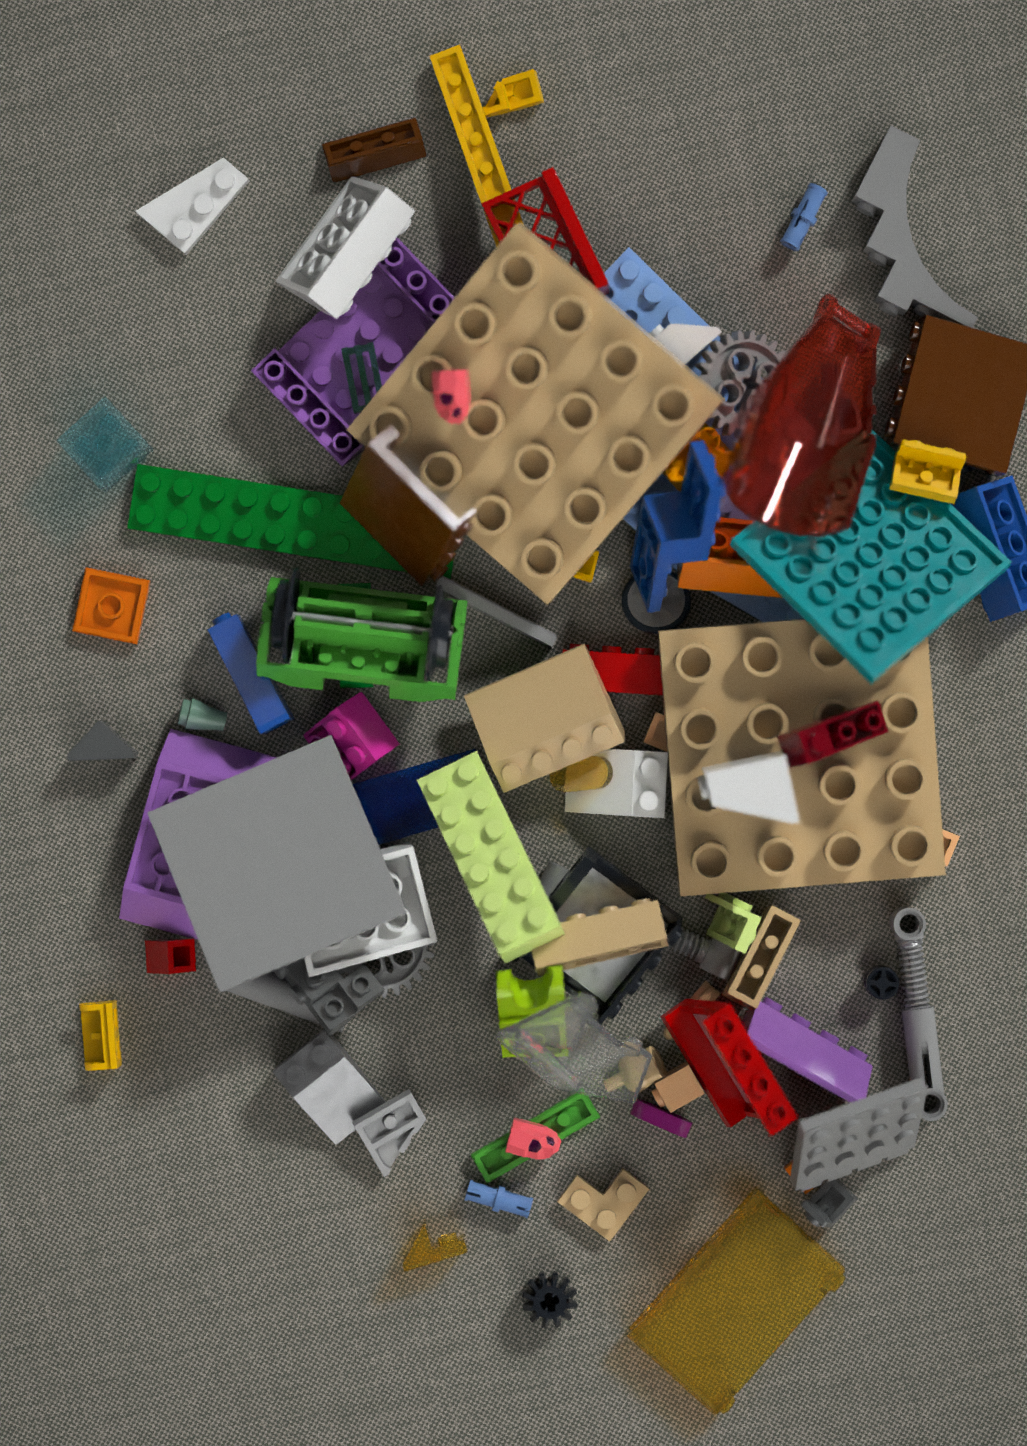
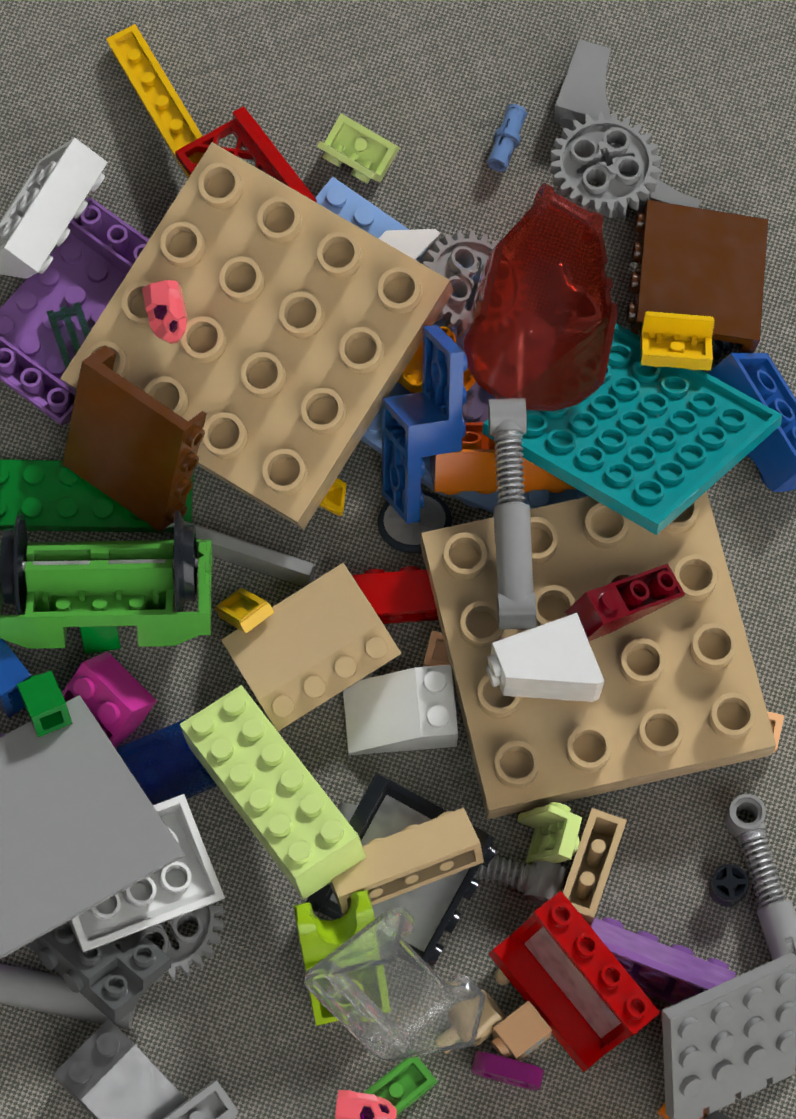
camera: 10 degrees left, 20 degrees down
(298, 744) = (44, 703): none -> green brick
(374, 150) = (85, 123): reddish brown slope -> none
(488, 670) = (244, 610): none -> yellow tile
(514, 94) = (197, 64): yellow slope -> none
(583, 775) = (360, 706): clear yellow tile -> none
(658, 212) = (359, 148): none -> yellowish green bracket
(743, 641) = (512, 517): none -> light grey piece
(885, 243) = (605, 164): none -> light grey gear

